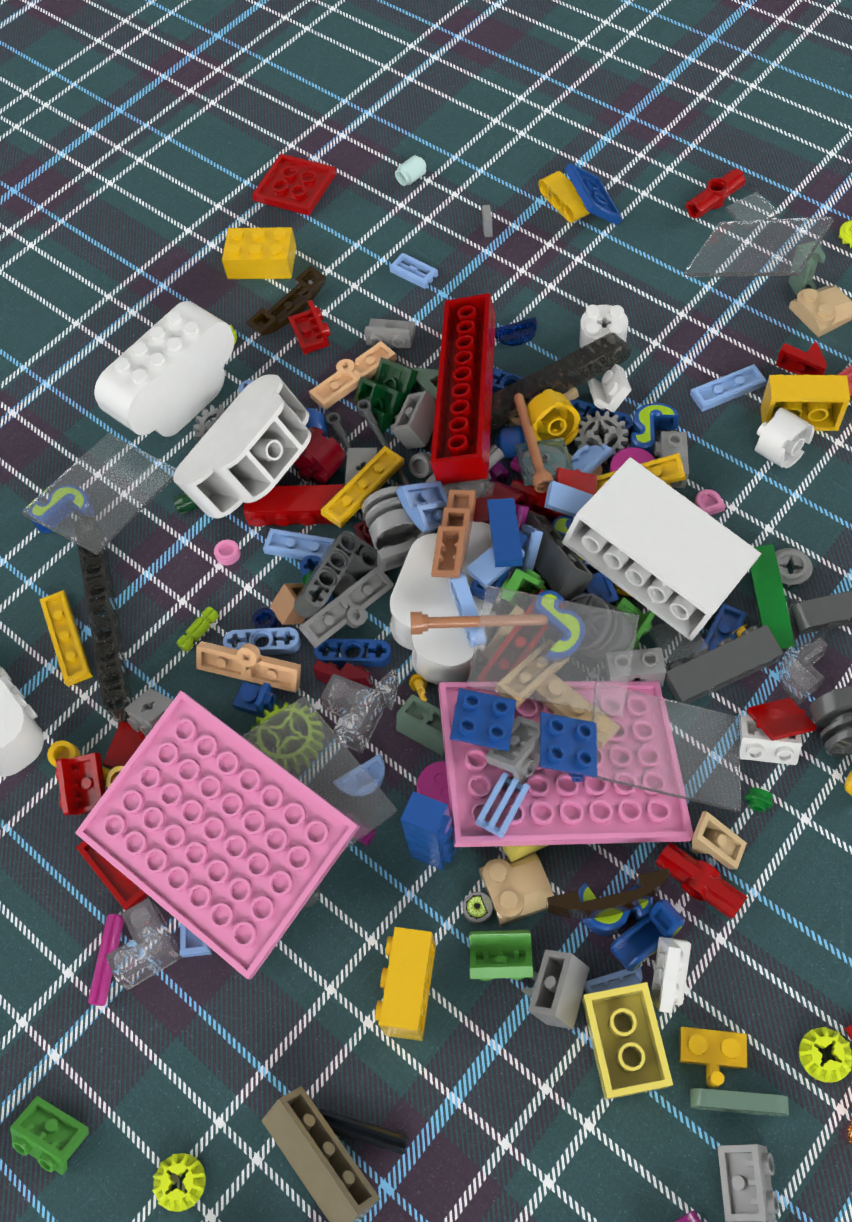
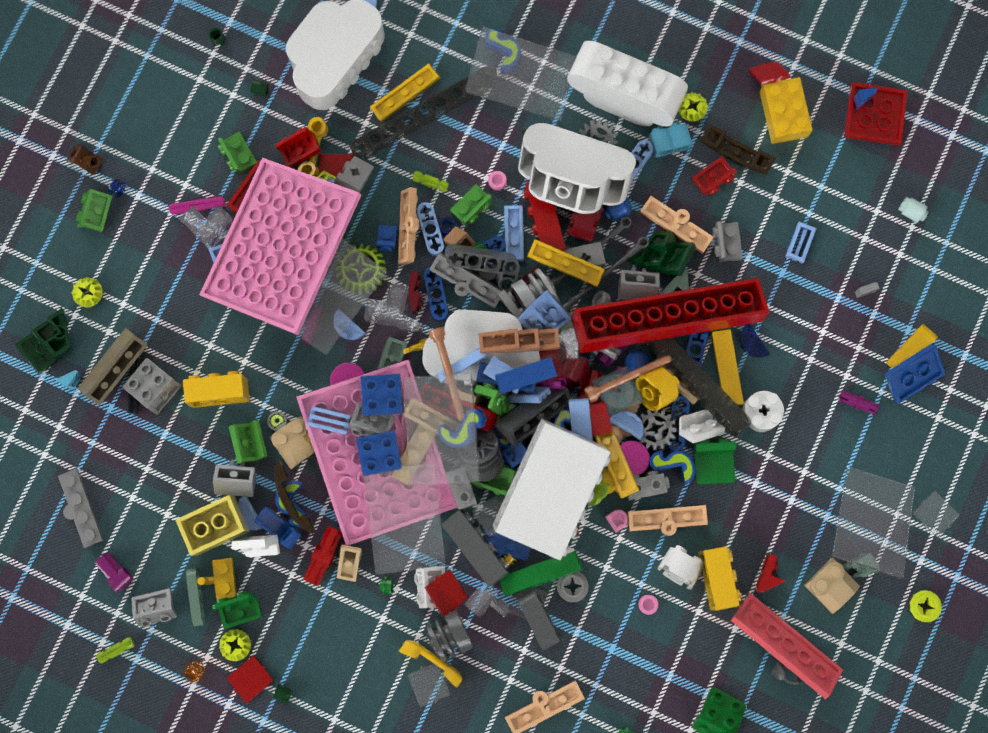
camera: 70 degrees right, 20 degrees up
(27, 1084) = (116, 188): none -> clear blue bush
(52, 879) = (238, 153): none -> bright green bracket
(211, 258) = (769, 73): none -> red piece
(248, 360) = (670, 139): none -> medium azure brick
(248, 586) = (471, 205): none -> bright green bracket
(273, 182) = (863, 96): none -> blue slope
(369, 1097) = (151, 386): none -> light grey bracket
(428, 830) = (303, 377): blue brick -> none
(527, 358) = (727, 365): none -> yellow tile
(612, 249) = (858, 402): none -> magenta pin
(653, 386) = (714, 462): none -> green bracket
(716, 192) = (954, 485): red piece -> none
(717, 448) = (667, 519): none -> light nougat hinge
(728, 387) = (732, 519): light blue tile -> none
(771, 1030) = (239, 609): none -> green bracket
(824, 490) = (648, 604): none -> bright pink tile

